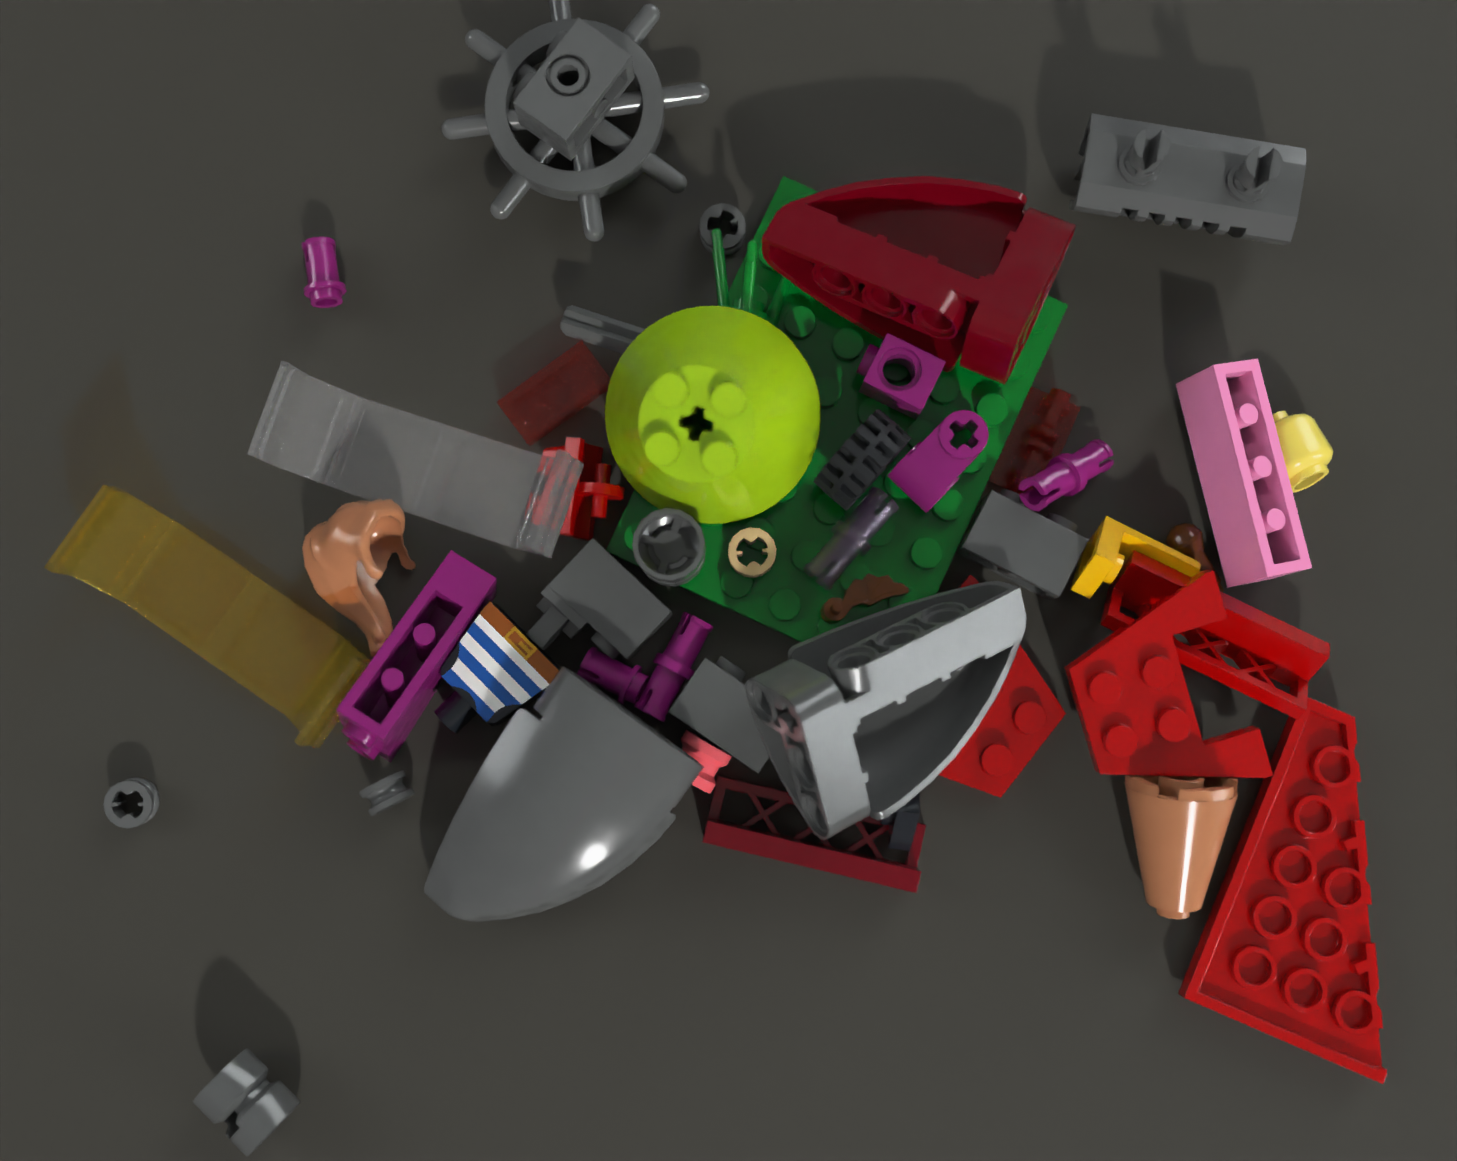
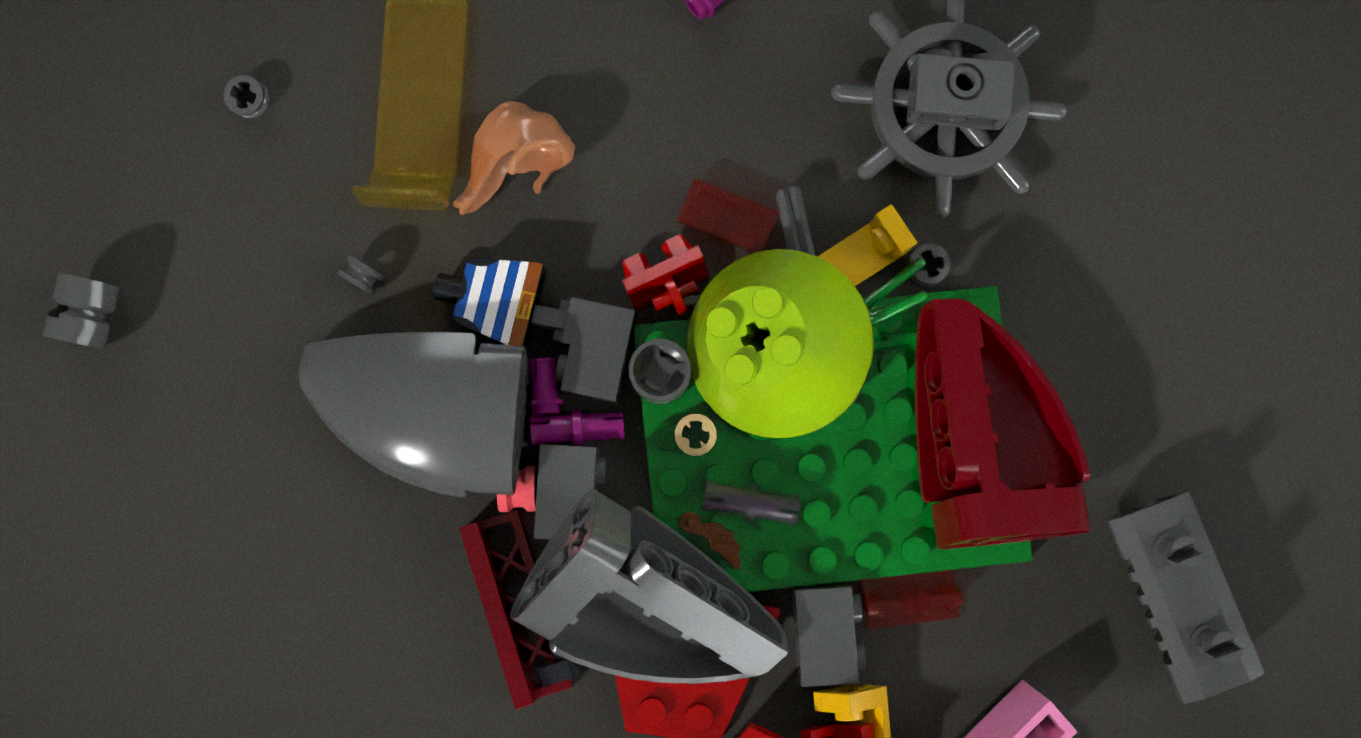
camera: 60 degrees right, 0 degrees up
(406, 668) = (455, 233): magenta slope -> none
(416, 463) = (613, 147): clear windscreen -> none
(671, 267) = (871, 246): none -> yellow bracket
(862, 459) = (813, 475): black tyre -> none
(923, 370) = (911, 480): magenta brick -> none
(935, 464) = (843, 531): magenta piece -> none
(1066, 475) = (898, 637): magenta pin -> none

